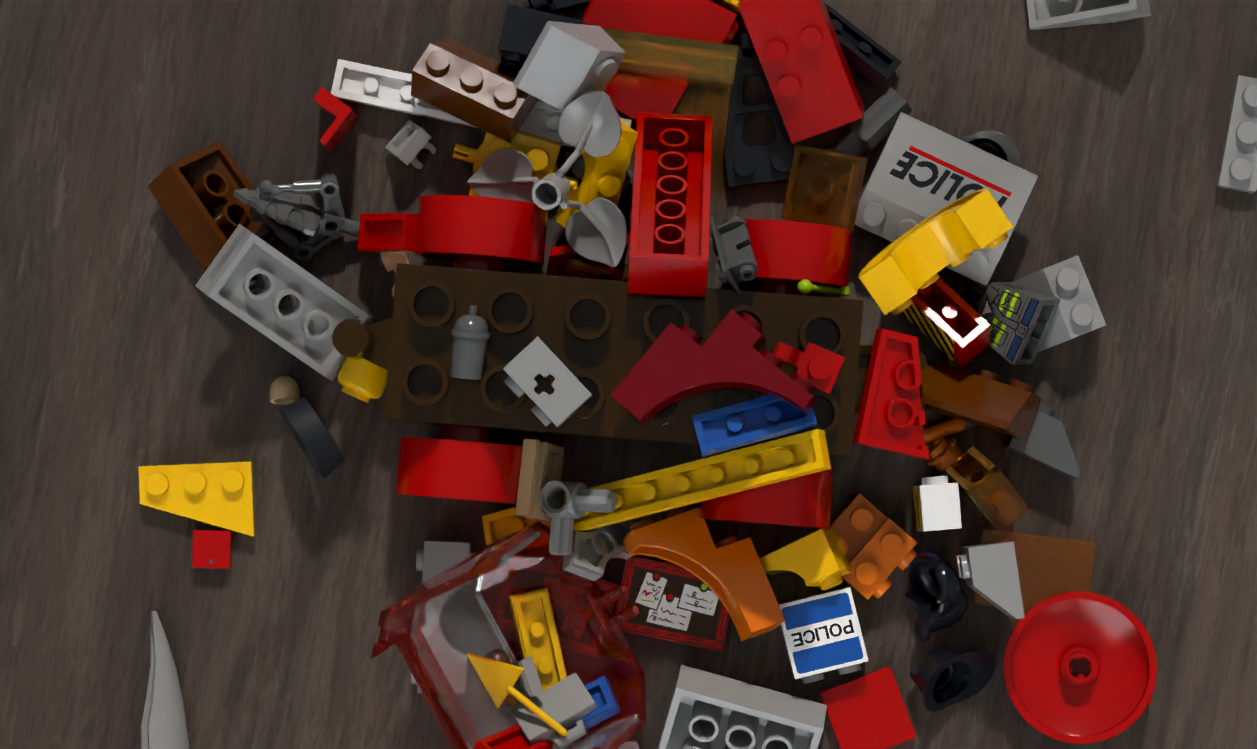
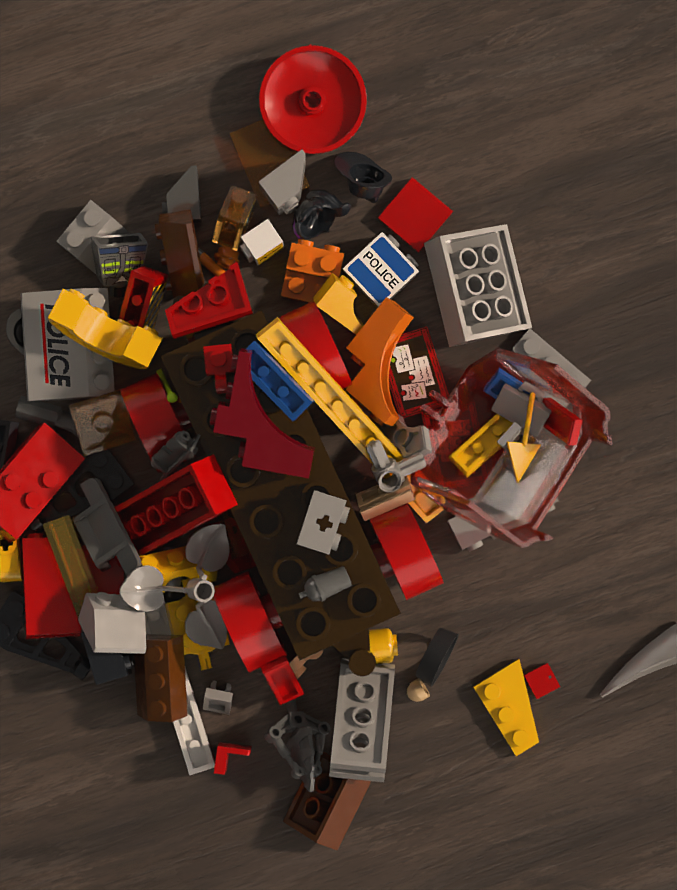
camera: 115 degrees left, 0 degrees up
(689, 117) = (104, 531): none -> dark grey plate

